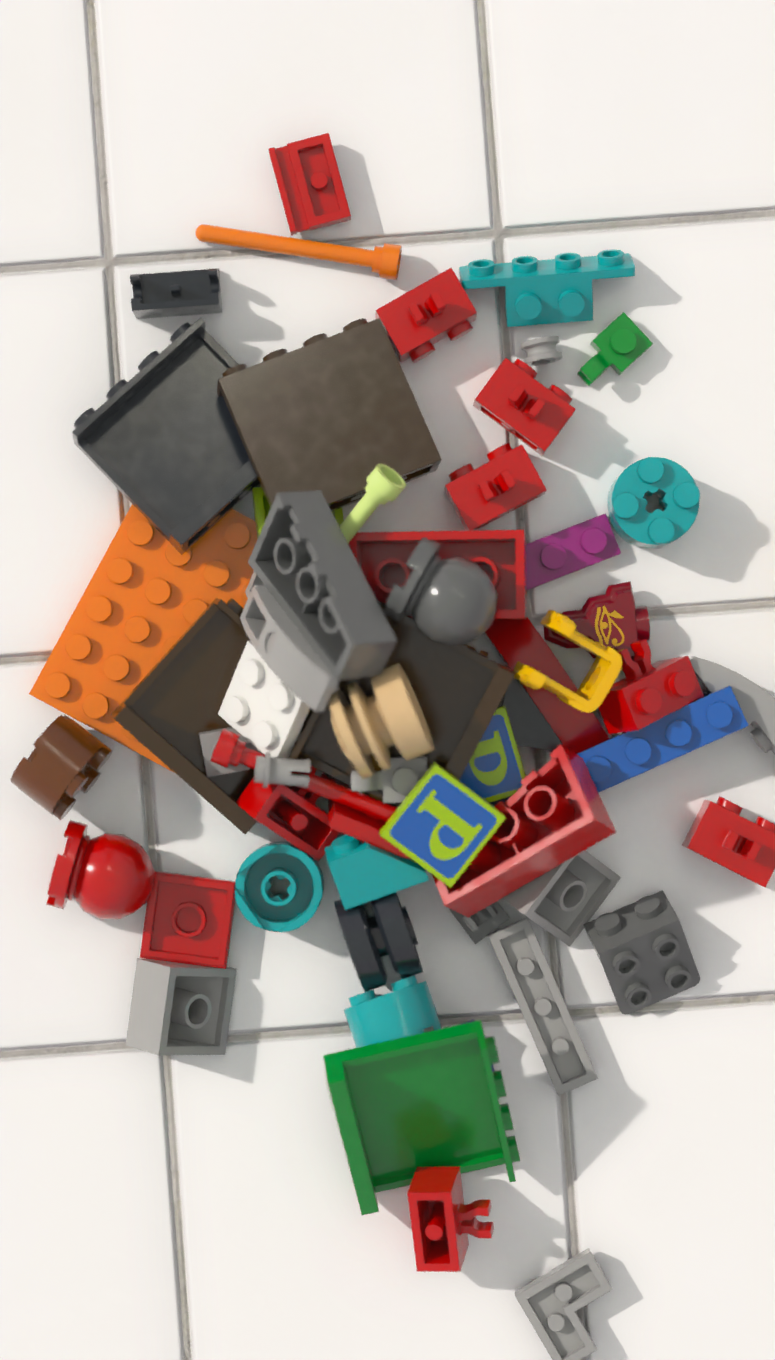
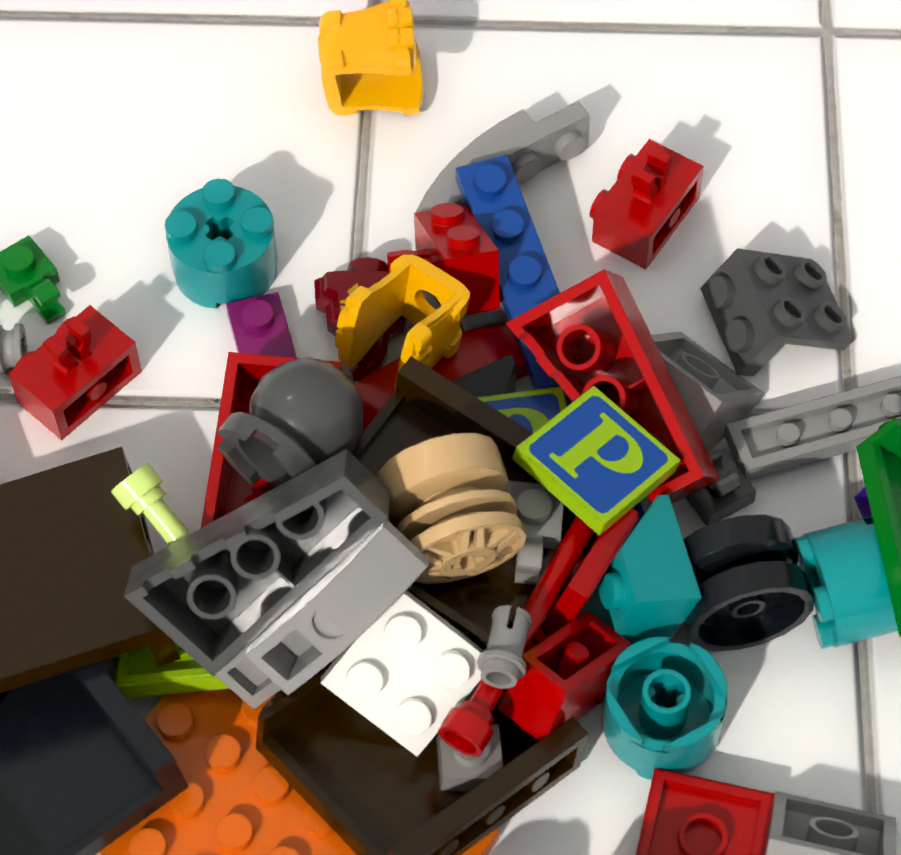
camera: 80 degrees left, 30 degrees down
(495, 487) = (171, 413): red brick -> none

